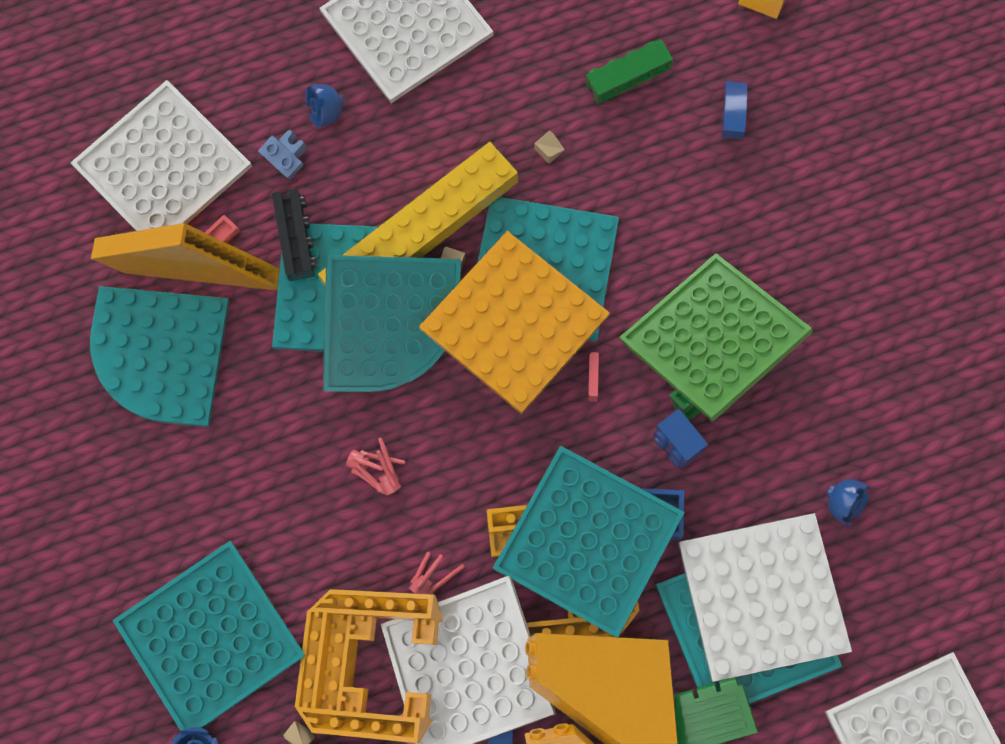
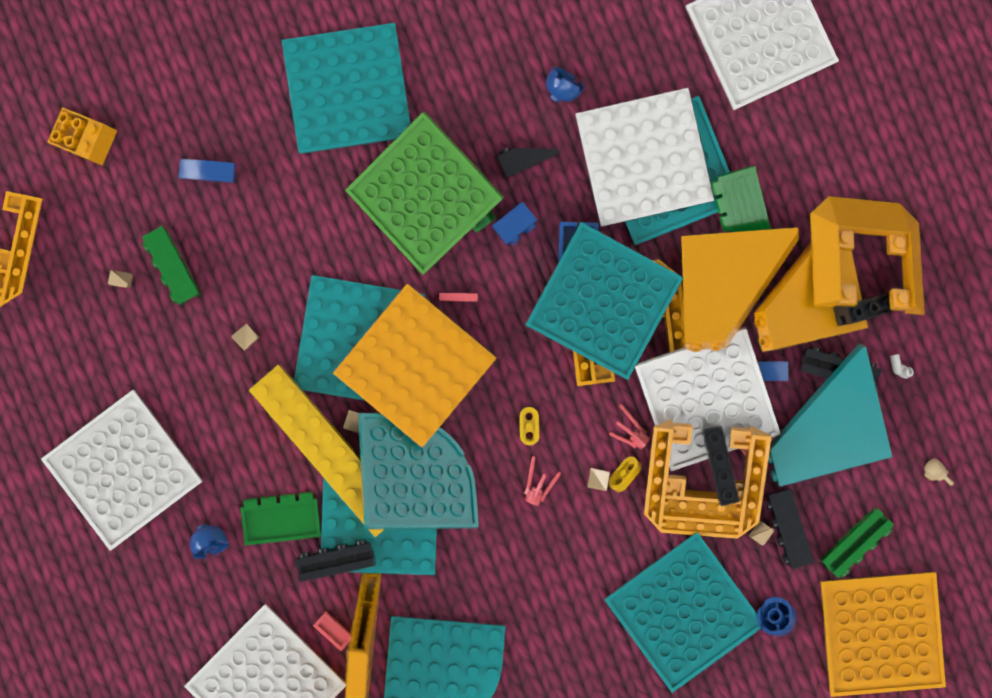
camera: 90 degrees left, 15 degrees up
(284, 154) = (254, 575): medium blue plate -> none
(345, 182) = (281, 520): none -> green hinge
(374, 536) = (598, 479): none -> tan slope
(379, 568) = (625, 474): none -> yellow plate
(383, 680) = (720, 465): none -> black brick
(389, 481) = (551, 469): coral plant -> none
(441, 453) = (529, 426): none -> yellow plate
(614, 20) = (120, 279): none -> tan slope
(756, 450) = (521, 159): none -> black slope
(834, 257) = (346, 88): none -> teal plate

